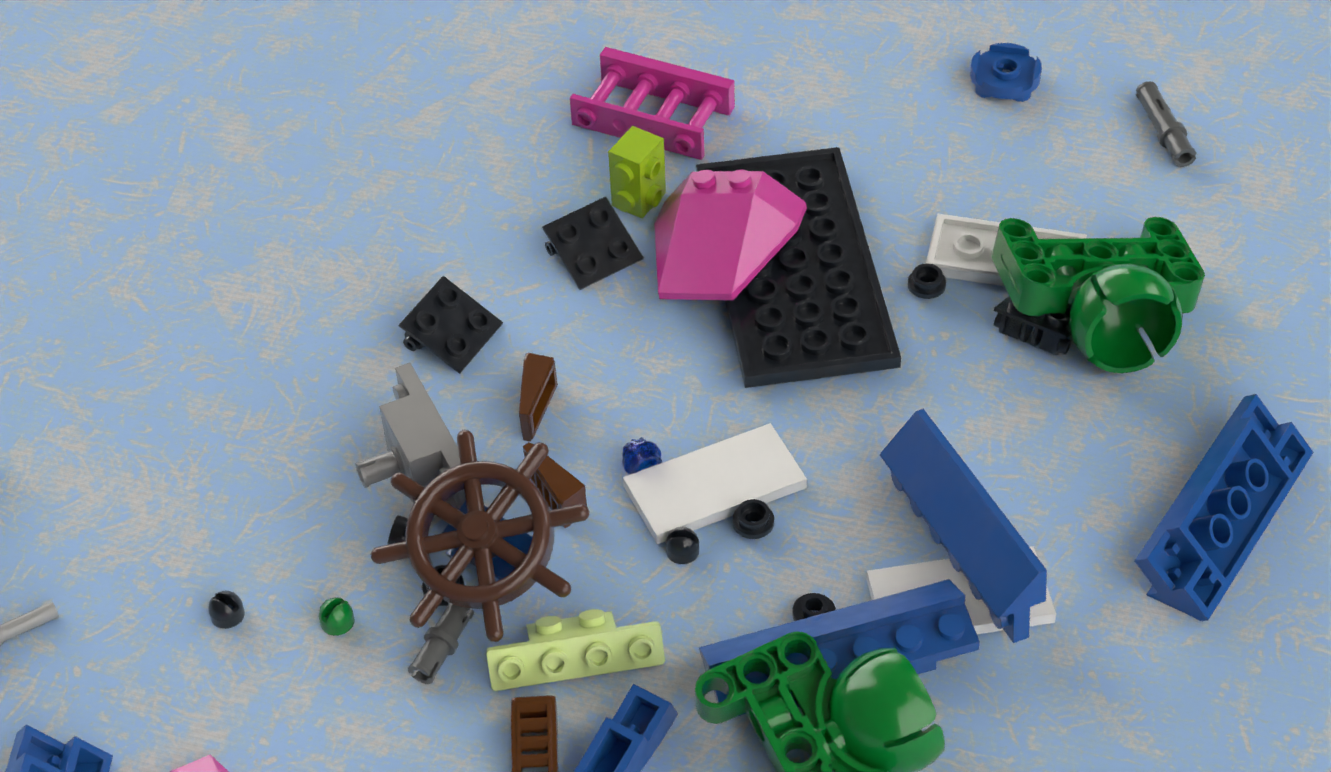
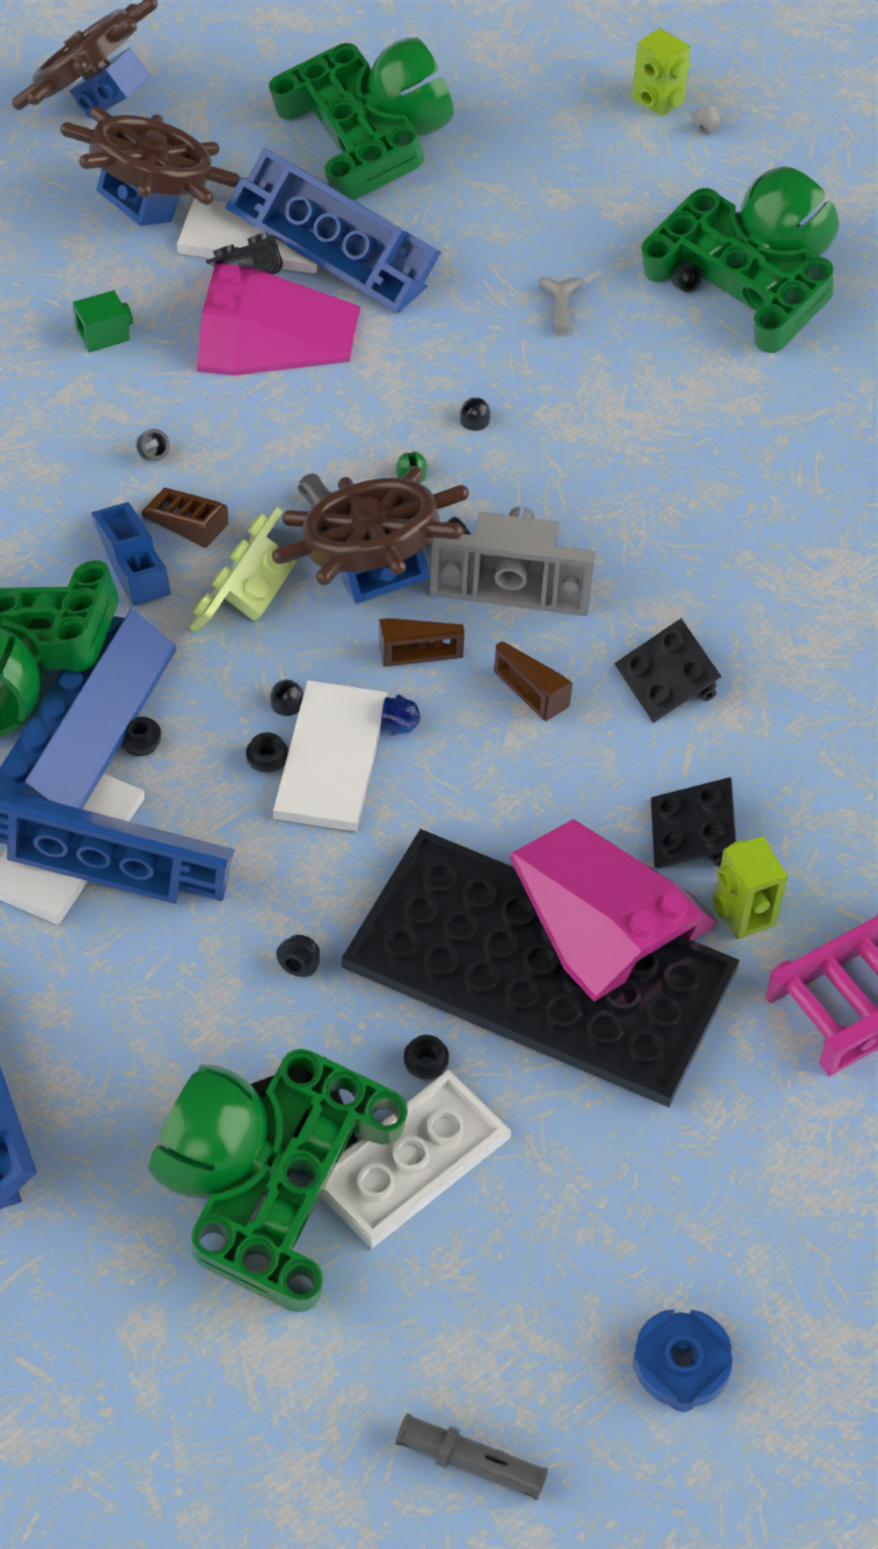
camera: 120 degrees right, 5 degrees up
(921, 385) = (299, 955): none -> black plate

